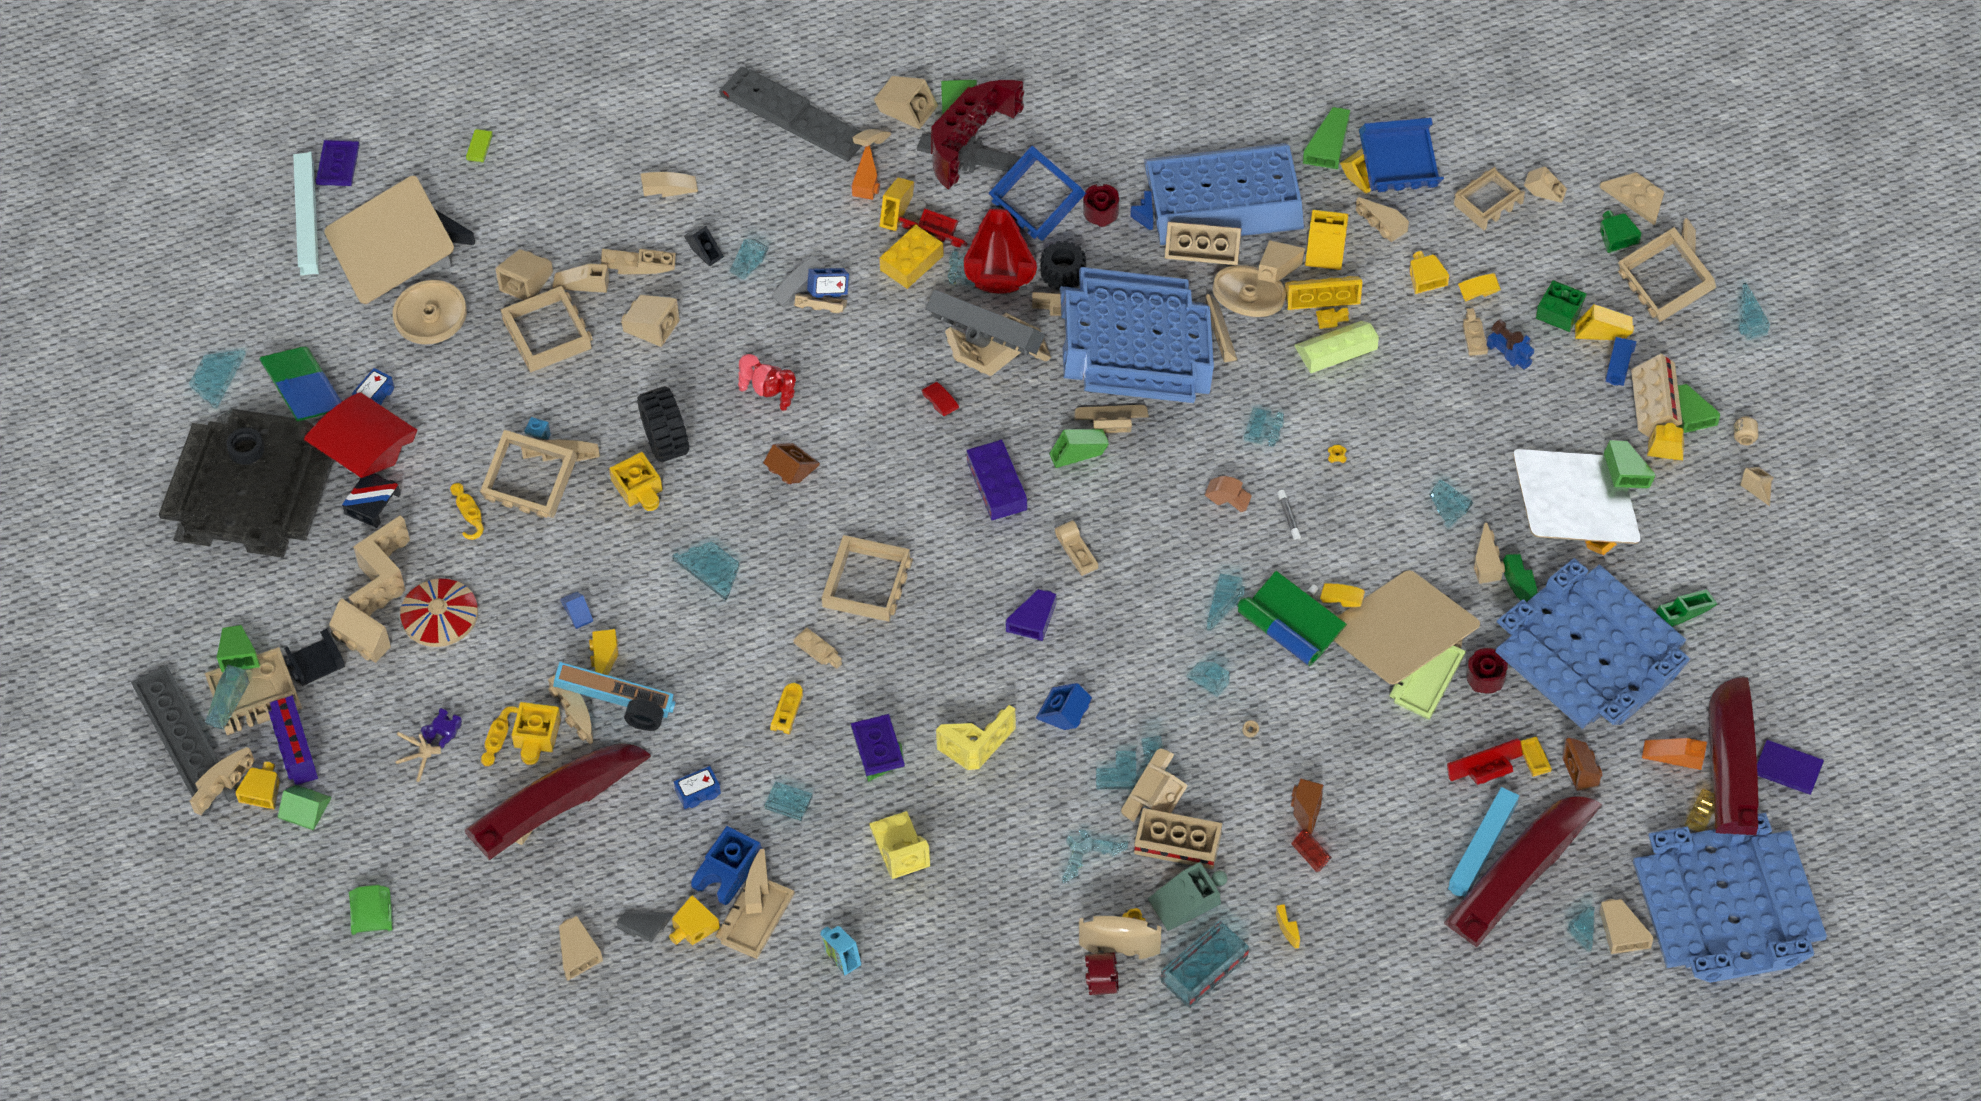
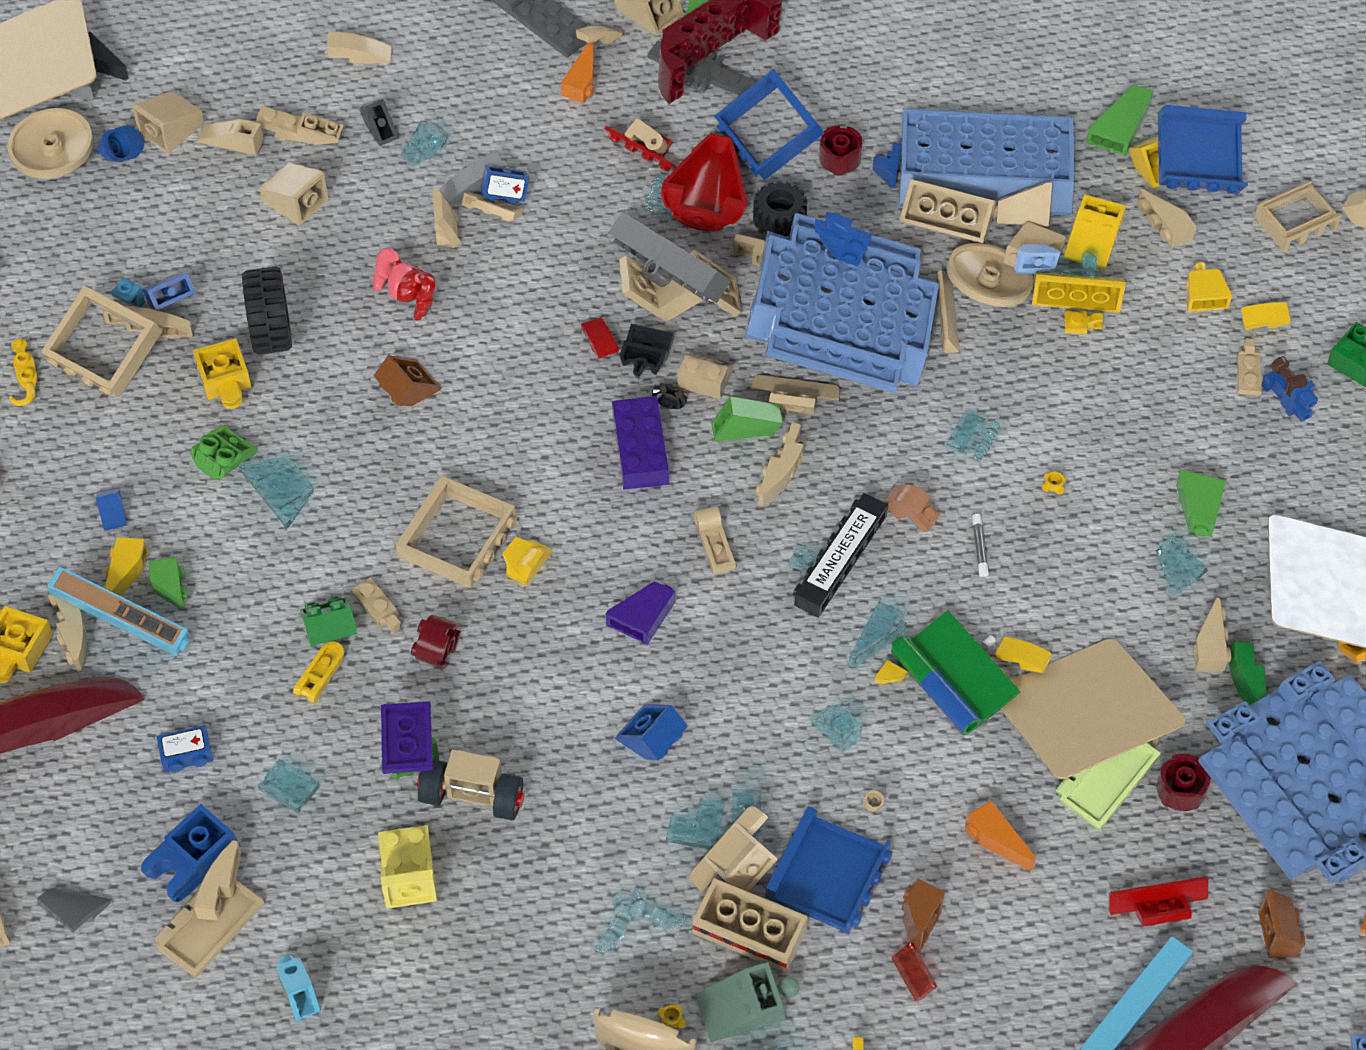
camera: 10 degrees right, 0 degrees up
(489, 302) = (121, 141): none -> blue piece
(557, 353) = (179, 212): tan window -> none
(571, 421) = (169, 291): none -> blue brick
(642, 659) = (166, 580): none -> bright green slope
(643, 715) = (146, 648): black tyre -> none
(654, 548) = (221, 452): none -> bright green slope
(693, 922) = (129, 917): yellow torso -> none
(783, 667) = (328, 620): none -> green slope
(785, 323) = (445, 221): none -> tan slope
(876, 667) = (436, 640): none -> dark red brick
(895, 203) = (606, 109): yellow slope -> none
(911, 256) = (608, 172): yellow brick -> none
(927, 590) = (525, 559): none -> yellow slope
(936, 770) = (472, 780): none -> brick
(938, 220) = (646, 135): none -> tan leg
(956, 744) = (543, 759): light yellow bracket -> none
(981, 401) = (646, 349): none -> black plate
(1010, 437) = (669, 396): none -> black gear
(1034, 415) = (704, 374): none -> tan slope
(1115, 480) = (781, 468): none -> tan slope
(1126, 283) = (842, 239): none -> blue plate
(1151, 551) = (802, 559): none -> clear light blue tile
(1180, 541) = (840, 555): none -> black brick
(1228, 788) = (828, 872): none -> blue panel
(1241, 628) = (890, 673): none -> yellow tile
(1265, 227) = (1026, 205): none -> tan slope
(1285, 272) = (1036, 258): none -> light blue slope
(1327, 271) = (1087, 268): none -> clear light blue hinge
(1338, 346) = (1082, 356): yellowish green slope -> none
(1351, 736) = (996, 834): none -> orange slope
(1456, 448) = (1200, 501): none -> bright green slope
(1535, 756) = (1223, 903): yellow tile -> none

